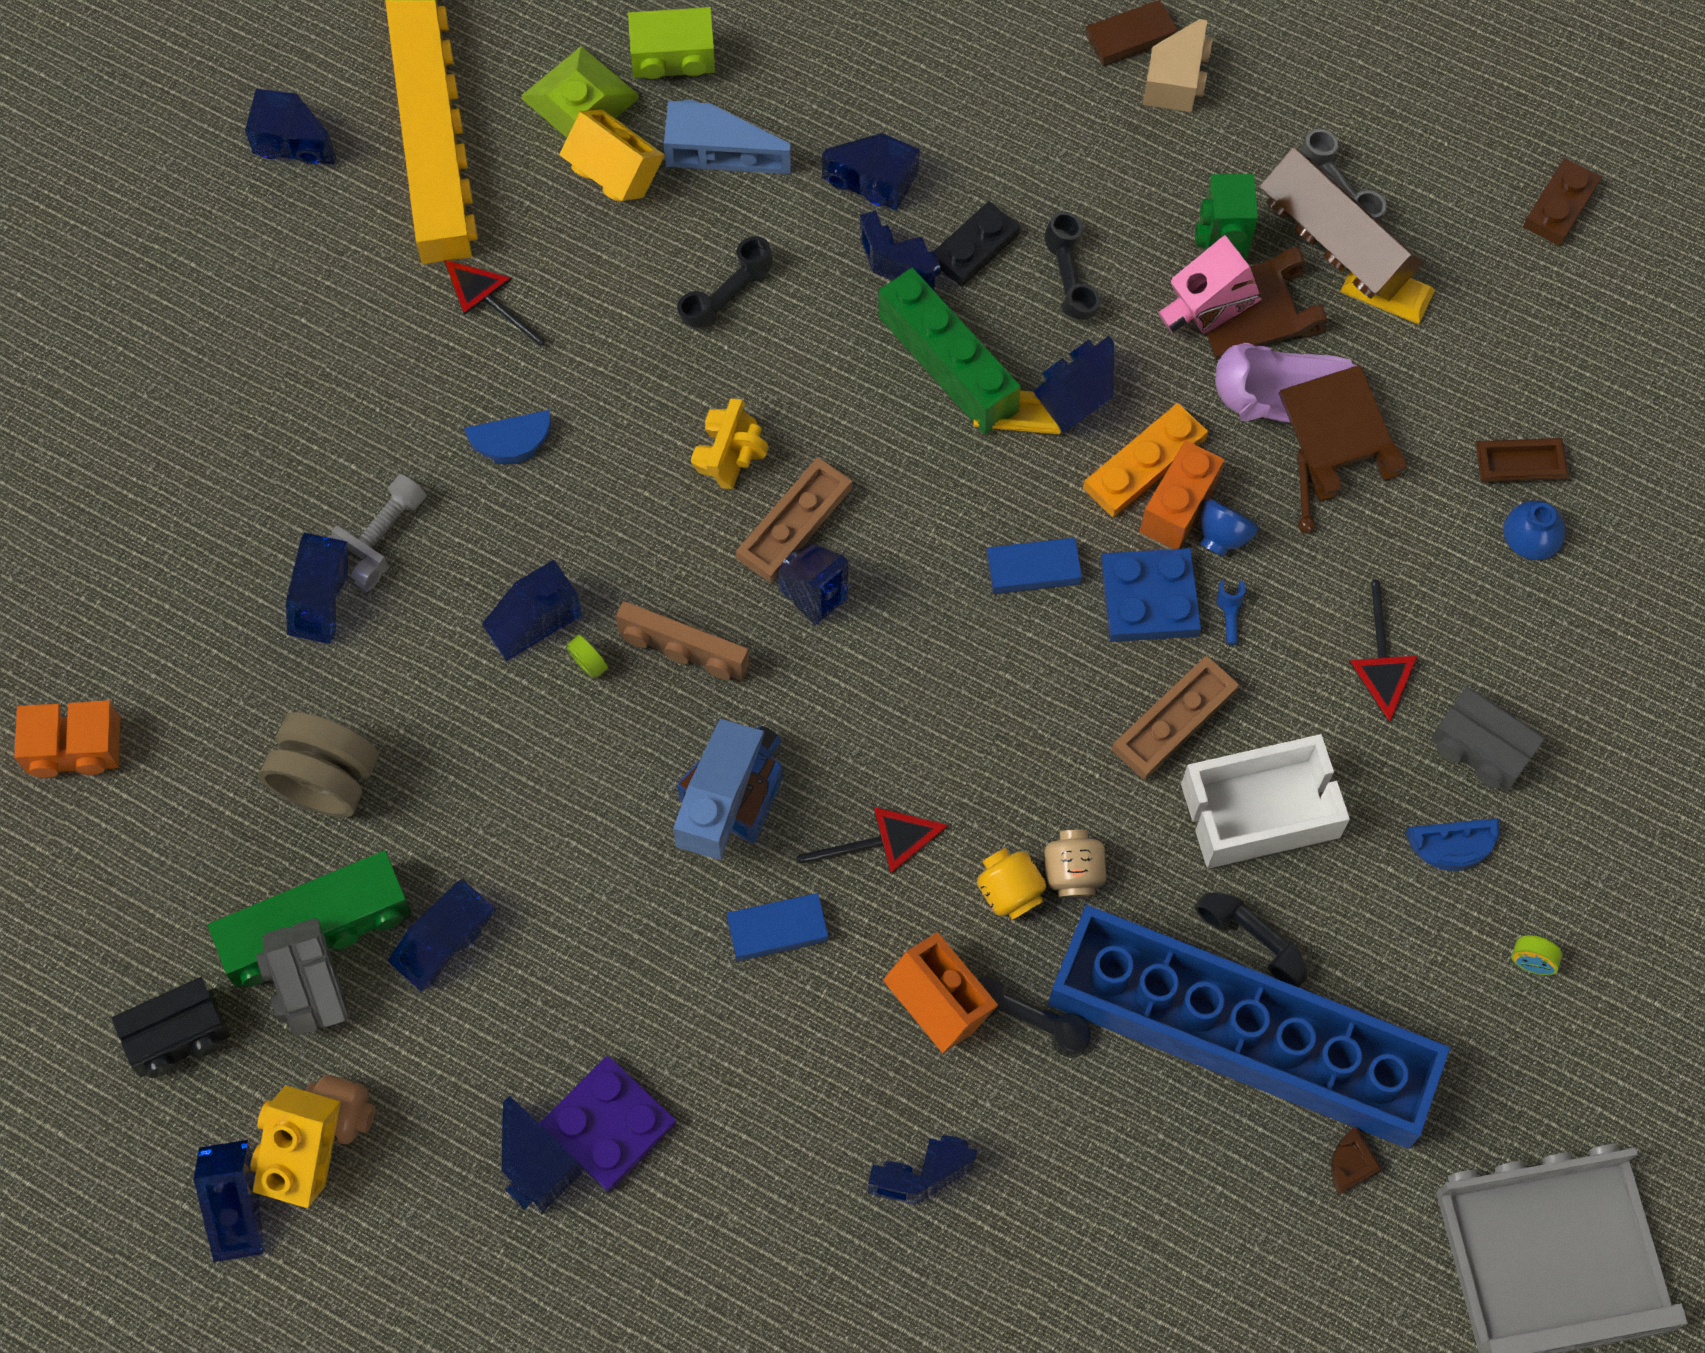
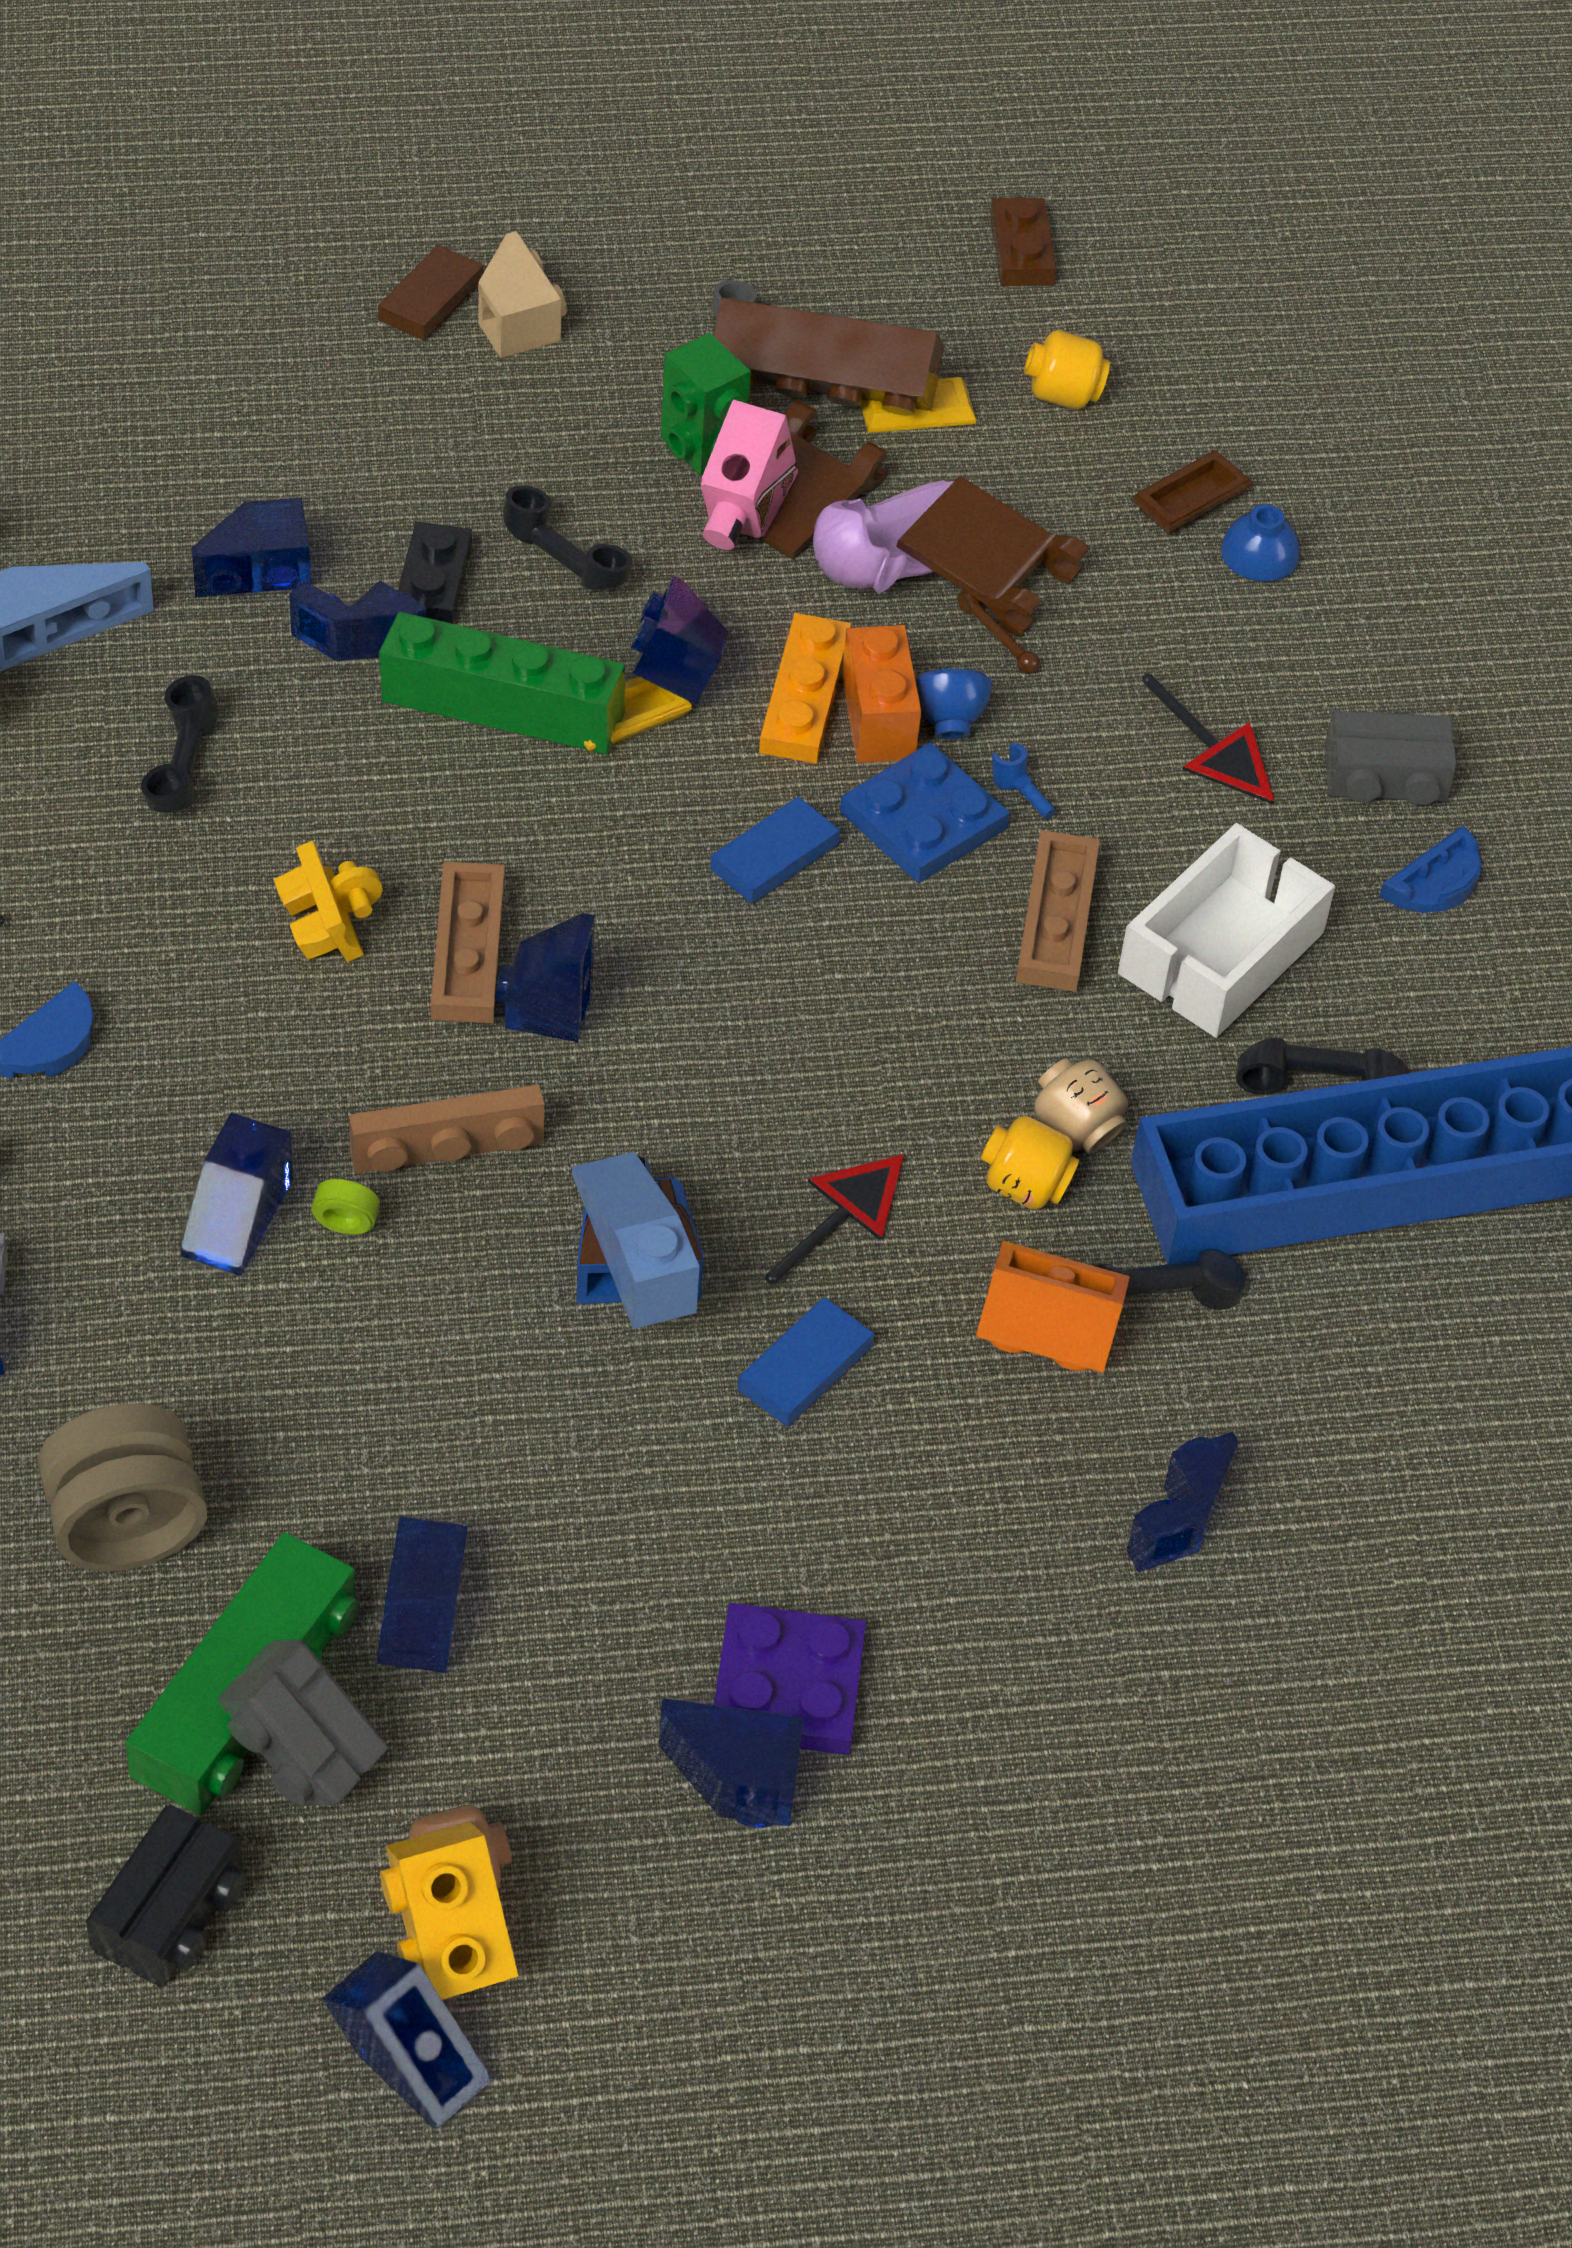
camera: 40 degrees left, 15 degrees down
(1504, 321) = (1067, 370): none -> yellow head

